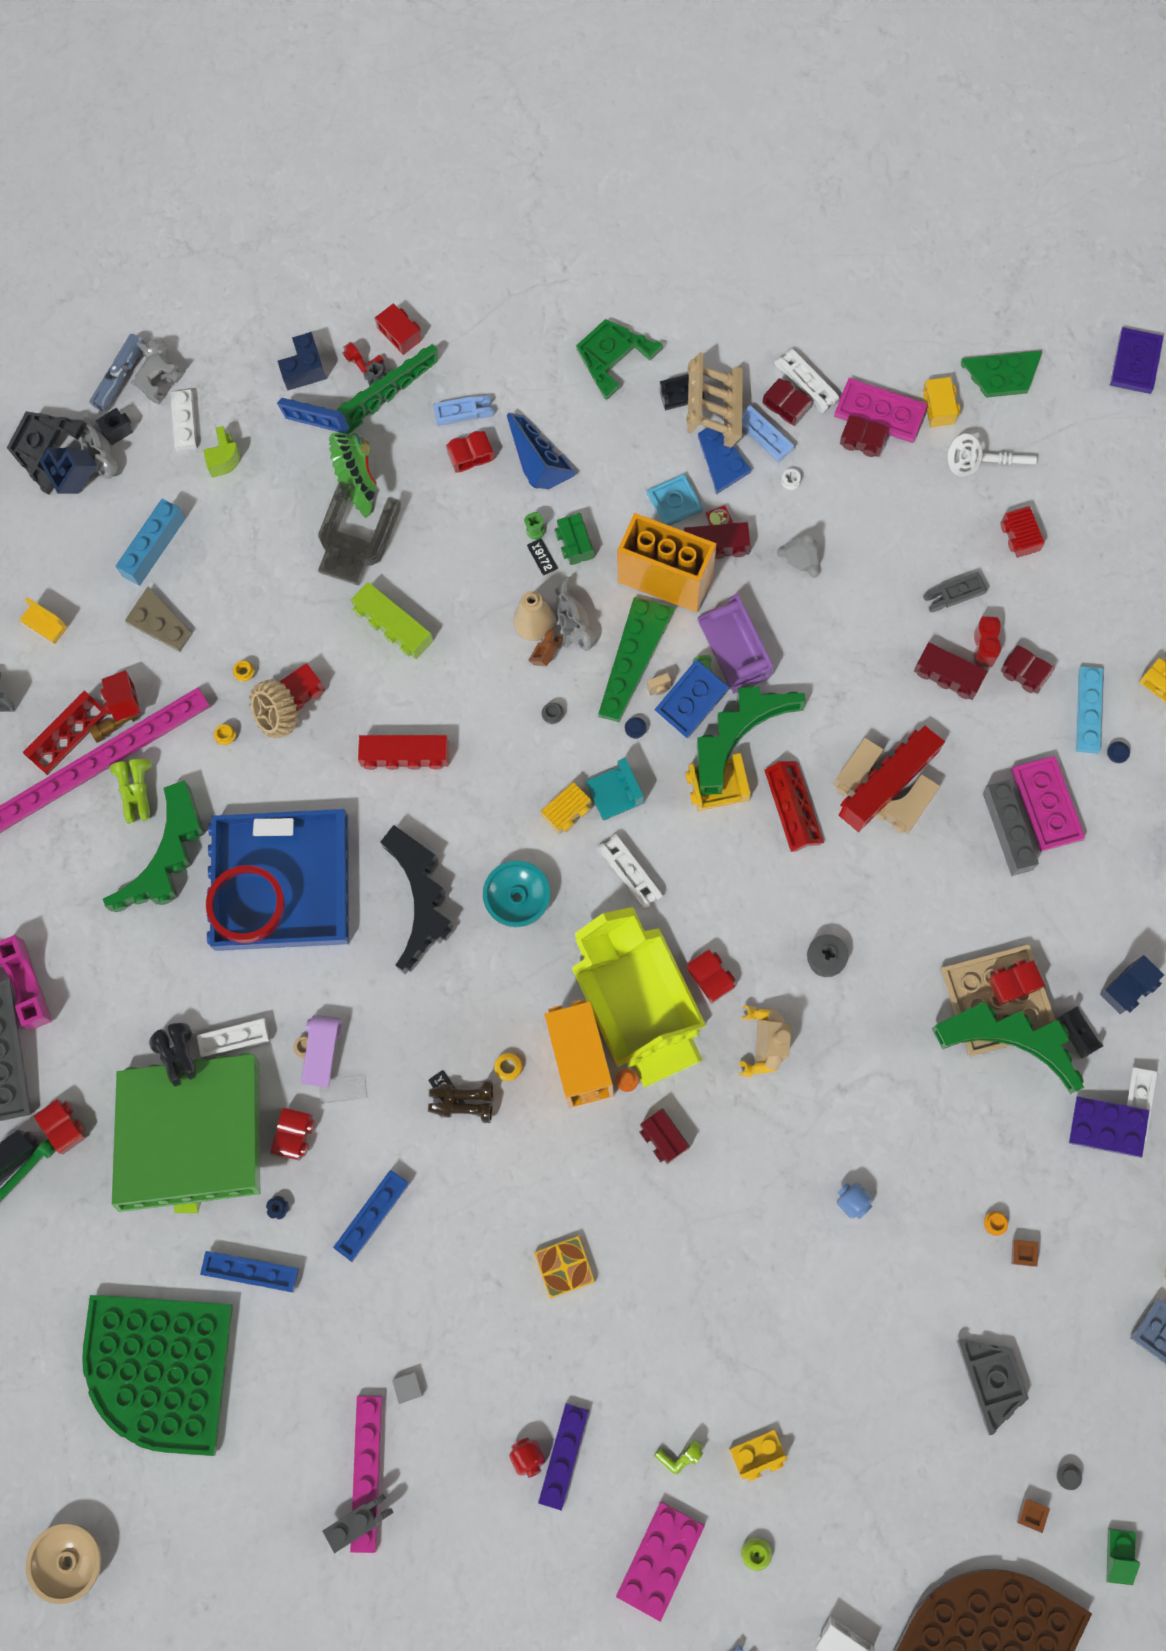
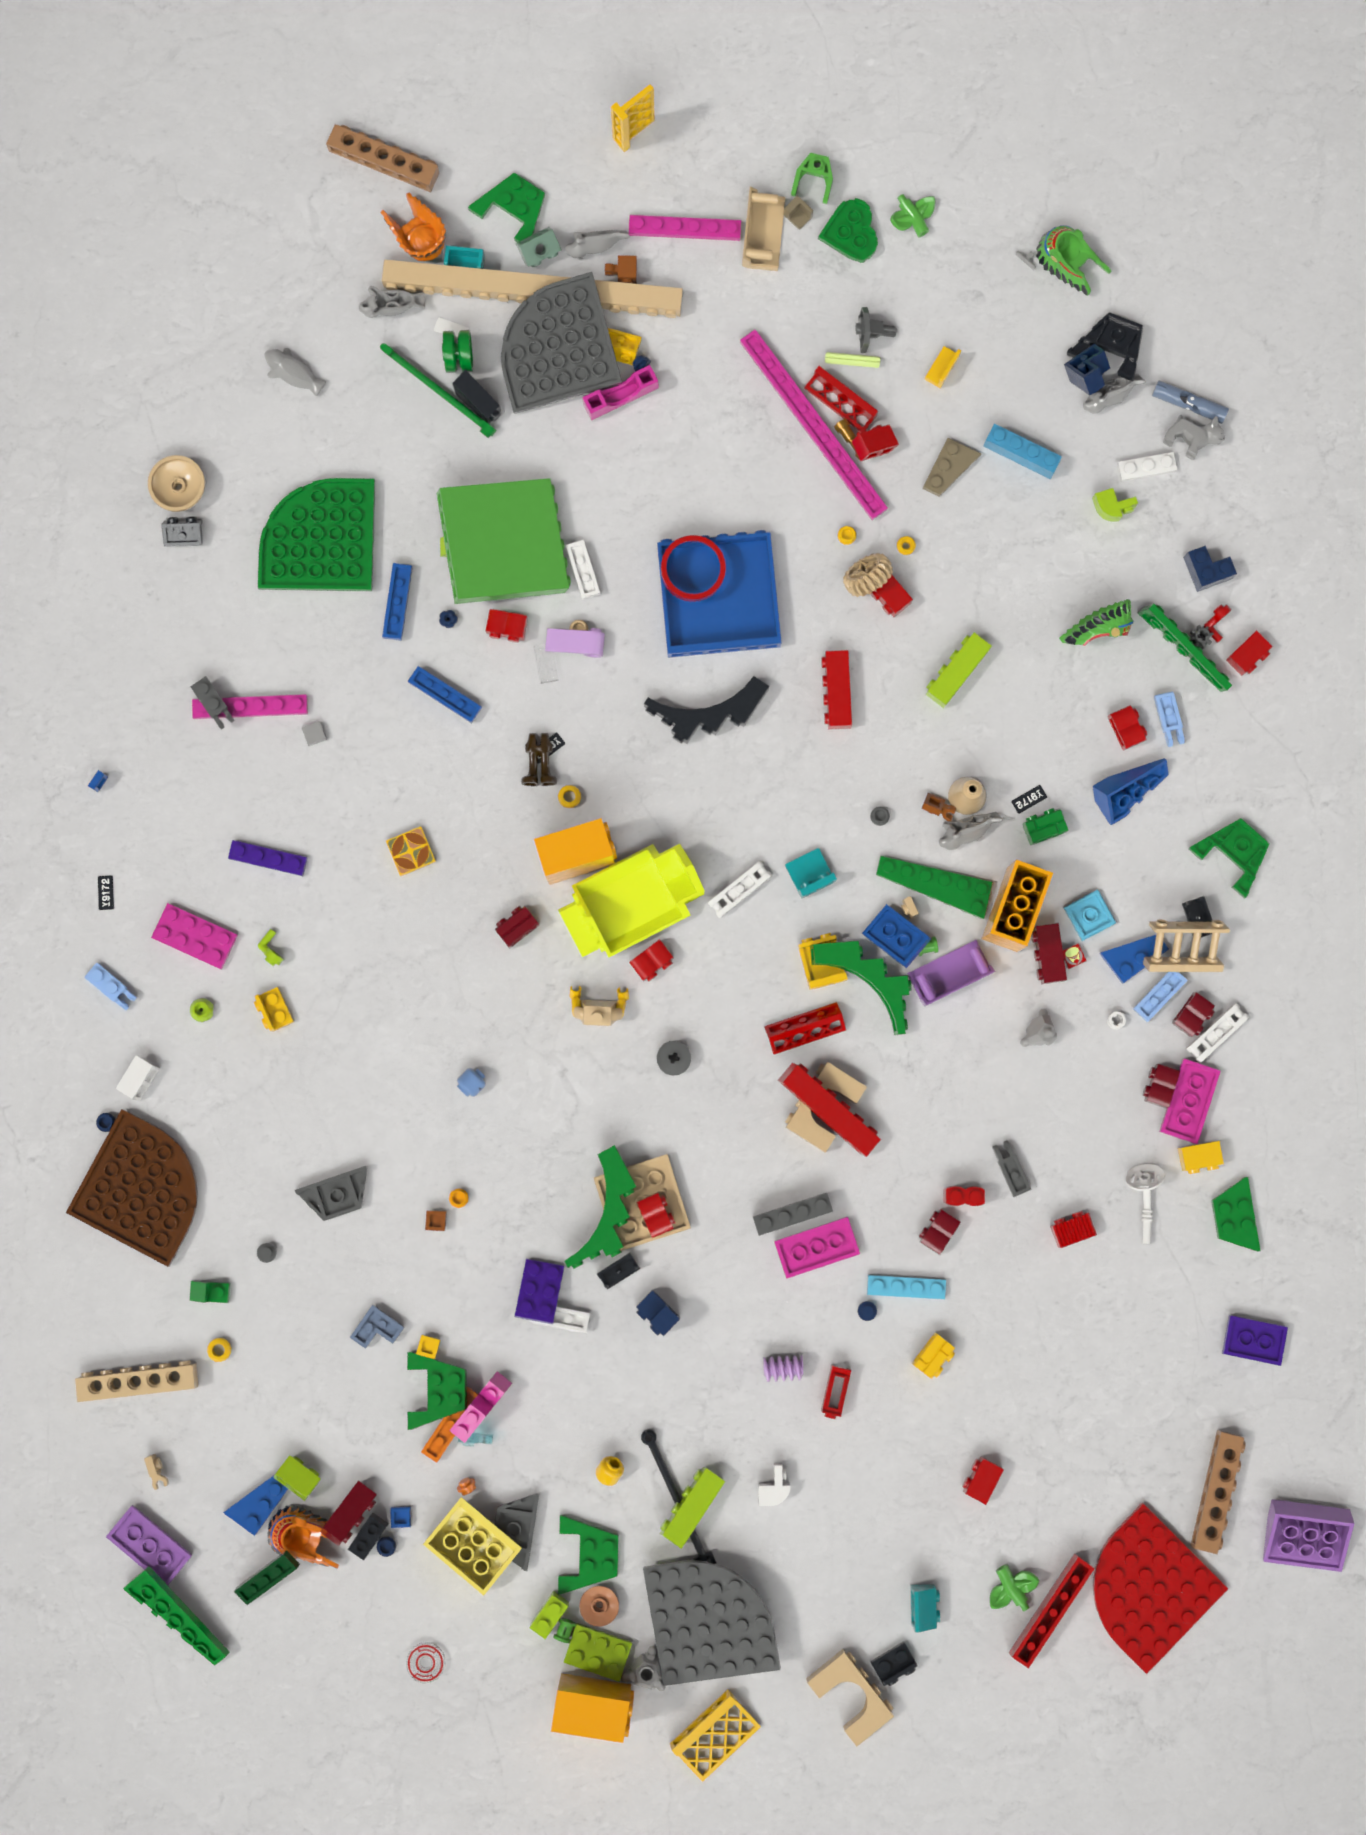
camera: 80 degrees right, 10 degrees up
(21, 719) = (852, 359): none -> yellowish green axle
(60, 1126) = (505, 438): red brick -> none
(116, 433) = (1135, 398): black brick -> none
(129, 1558) = (182, 532): none -> bracket
(134, 794) = (788, 465): lime piece -> none
(155, 880) = (763, 507): green arch -> none
(177, 1058) = (562, 526): black piece -> none
(273, 827) = (762, 584): white sticker -> none
(313, 415) = (1152, 580): blue plate -> none
(349, 555) = (1018, 623): clear smoke plate -> none
(514, 879) = (713, 780): teal dish -> none
(527, 1457) = (265, 829): red head -> none
(534, 524) = (1050, 791): bright green bush -> none
(566, 808) = (792, 832): yellow brick -> none
(626, 1080) = (562, 894): orange plate -> none
(635, 727) = (869, 888): dark blue plate -> none
(950, 671) = (934, 1163): dark red brick -> none
(1033, 1515) = (237, 1223): dark orange plate -> none

